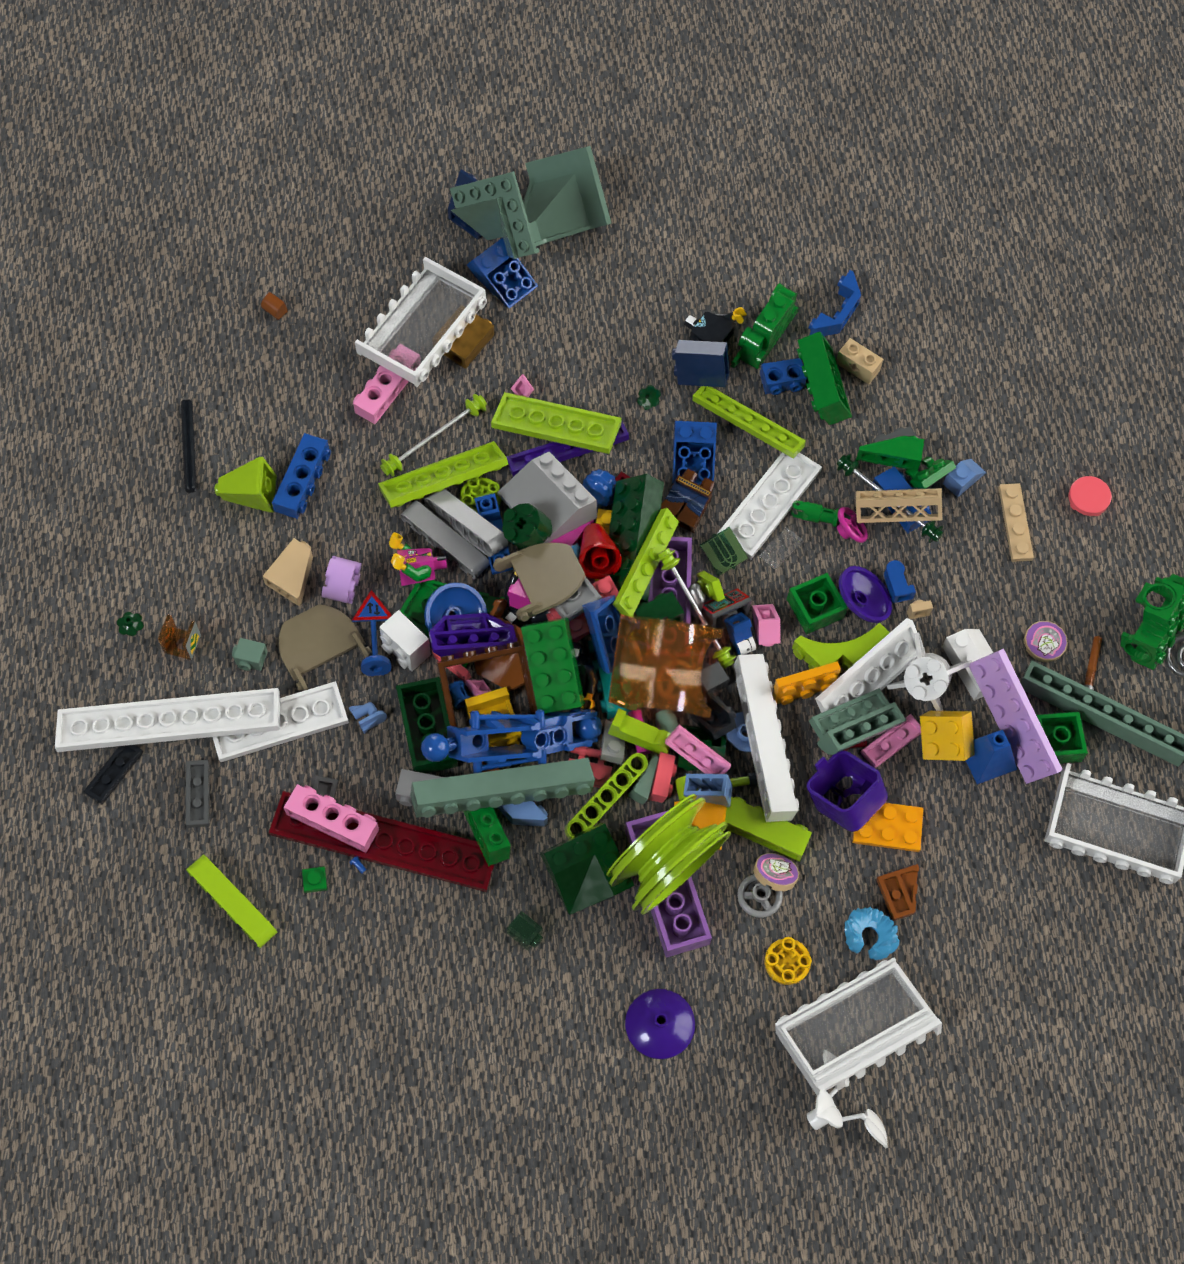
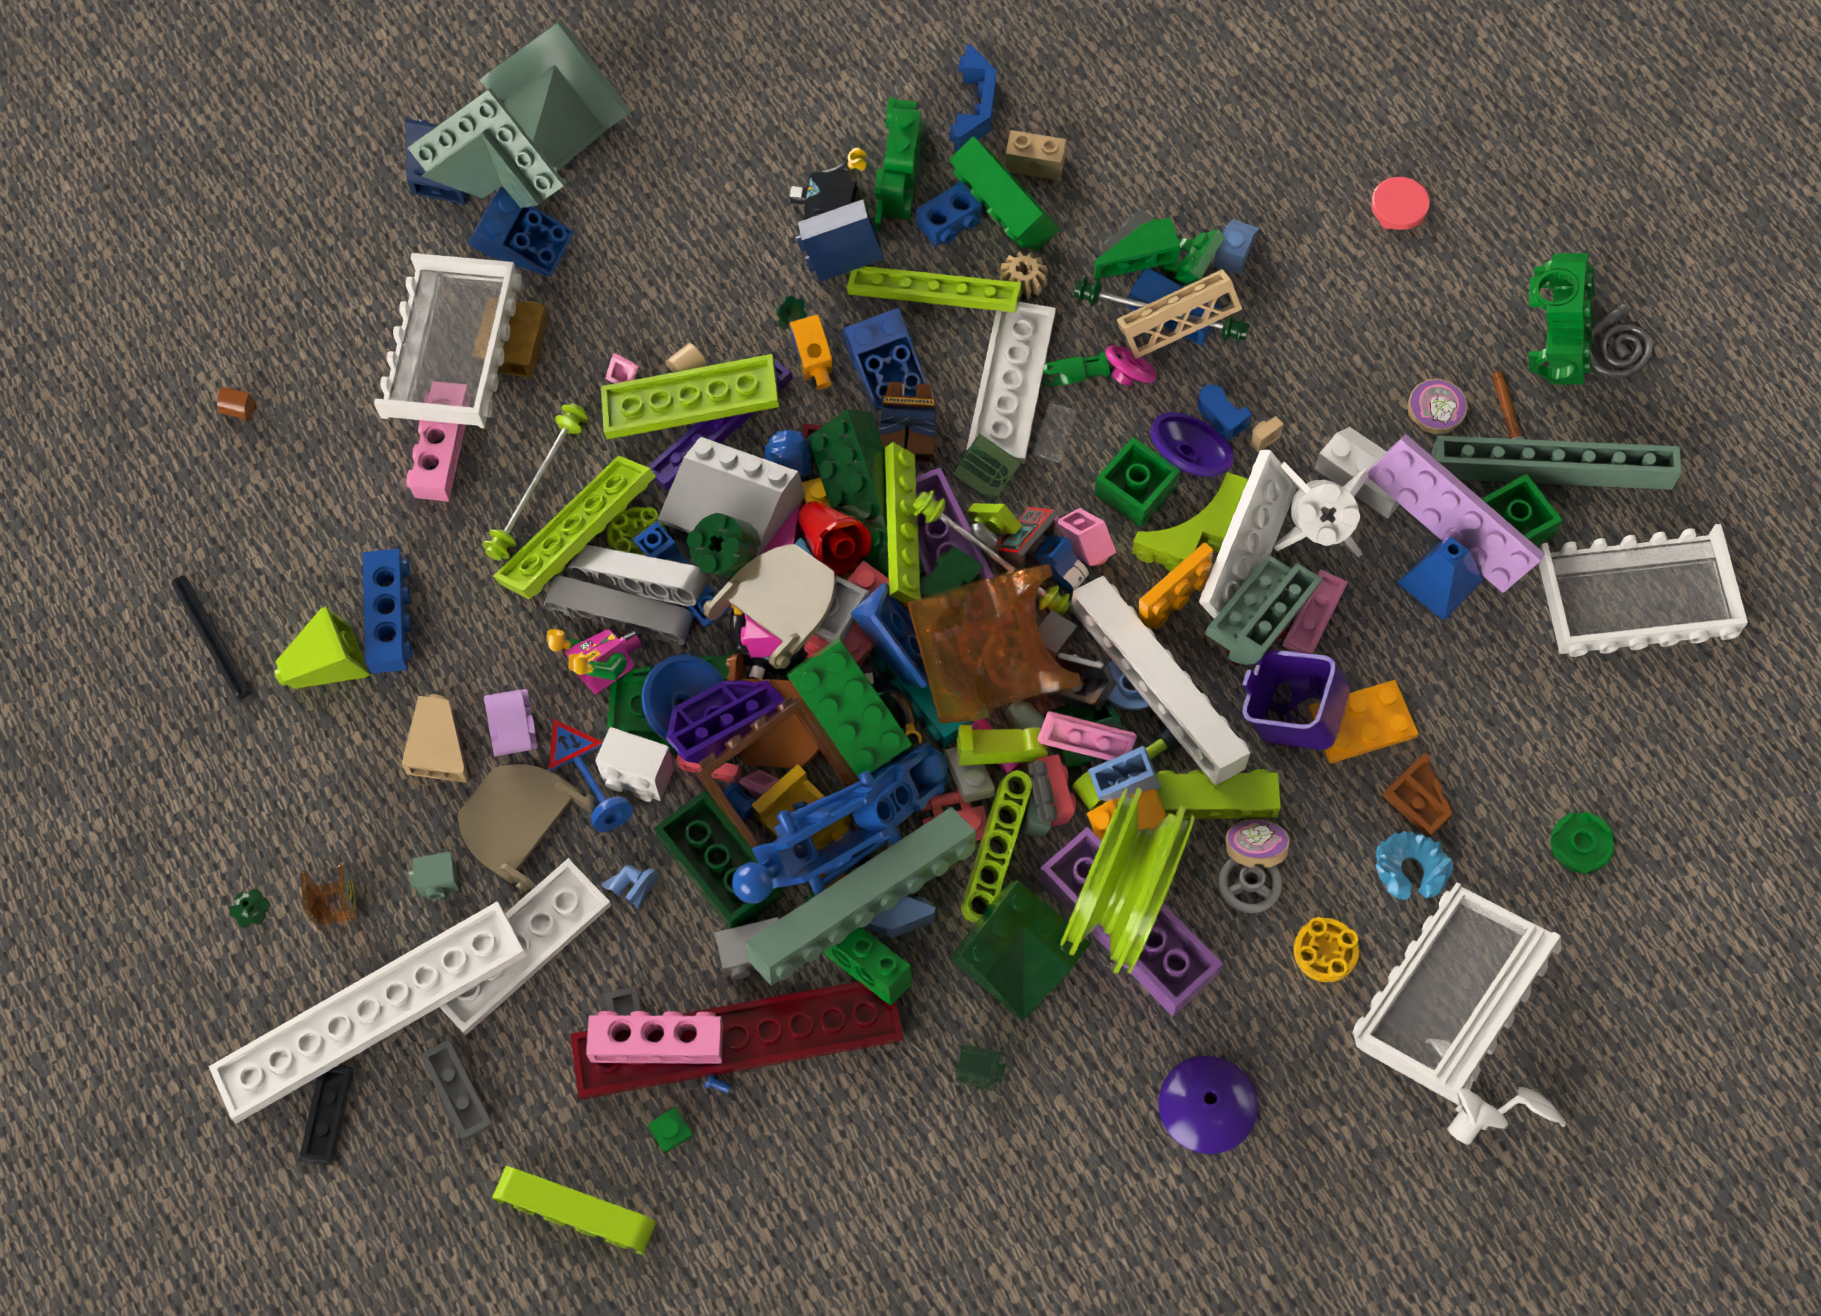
camera: 20 degrees left, 0 degrees up
(567, 398) = (686, 358): none -> tan brick
(648, 427) = (812, 351): none -> light orange torso
(652, 774) = (1042, 791): none -> dark grey axle
(820, 435) = (1027, 271): none -> tan gear
(947, 735) = (1383, 575): yellow brick -> none
(991, 977) = (1576, 849): none -> green tile
(1016, 522) = (1327, 275): tan plate -> none

